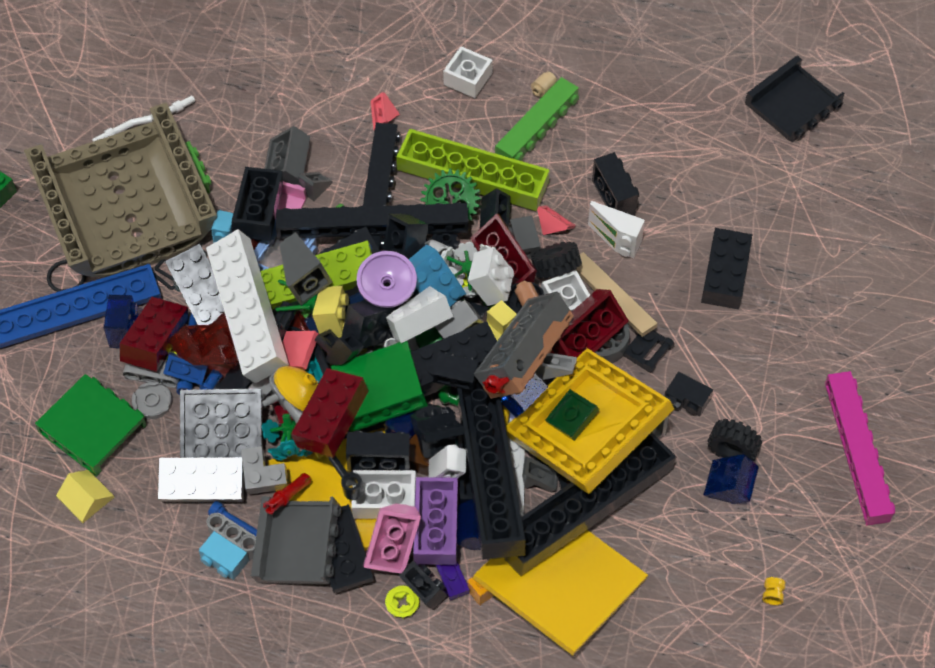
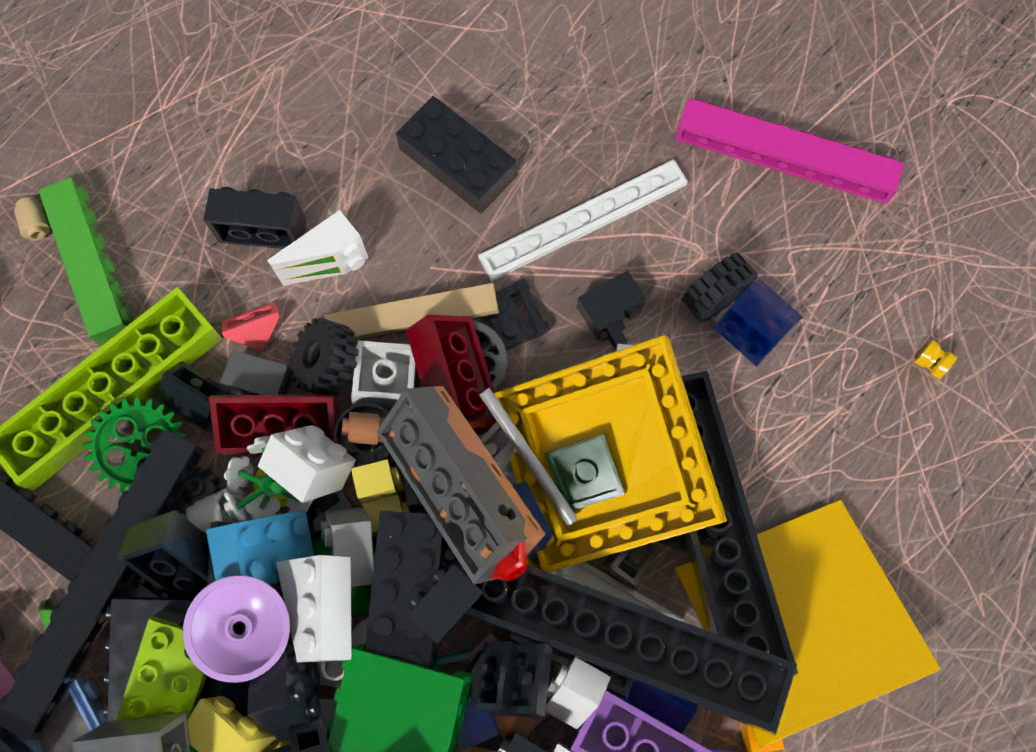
camera: 60 degrees left, 15 degrees up
(562, 379) = (528, 456): none -> light grey piece
(735, 357) = (582, 220): none -> white tile

